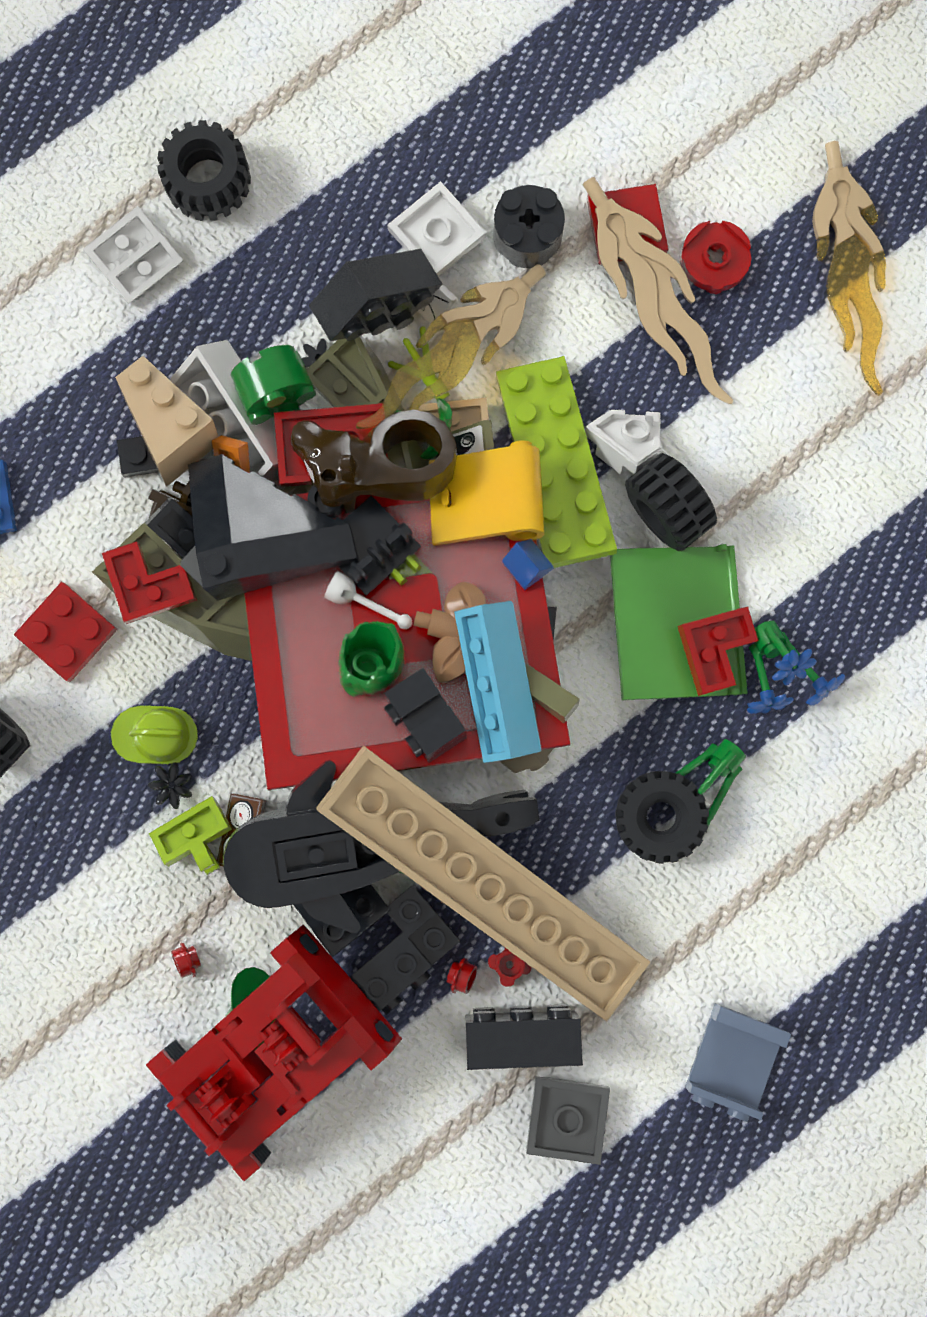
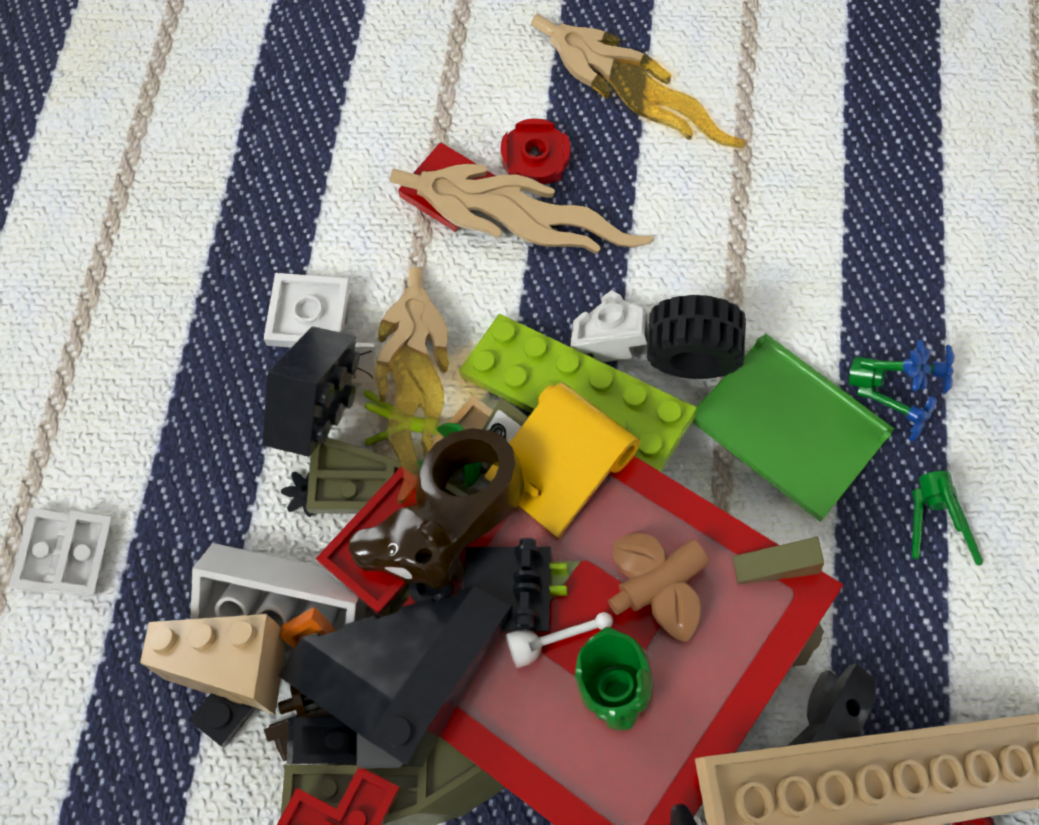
camera: 45 degrees left, 15 degrees down
(201, 144) = (44, 410): black tyre -> none
(272, 383) = (290, 536): green brick -> none
(425, 716) = (711, 681): black brick -> none
(498, 681) = (740, 591): medium azure panel -> none
(527, 563) = (649, 479): blue slope -> none
(532, 207) = (376, 245): black brick -> none
(689, 822) = (975, 574): black tyre -> none
(706, 647) = (833, 418): red plate -> none

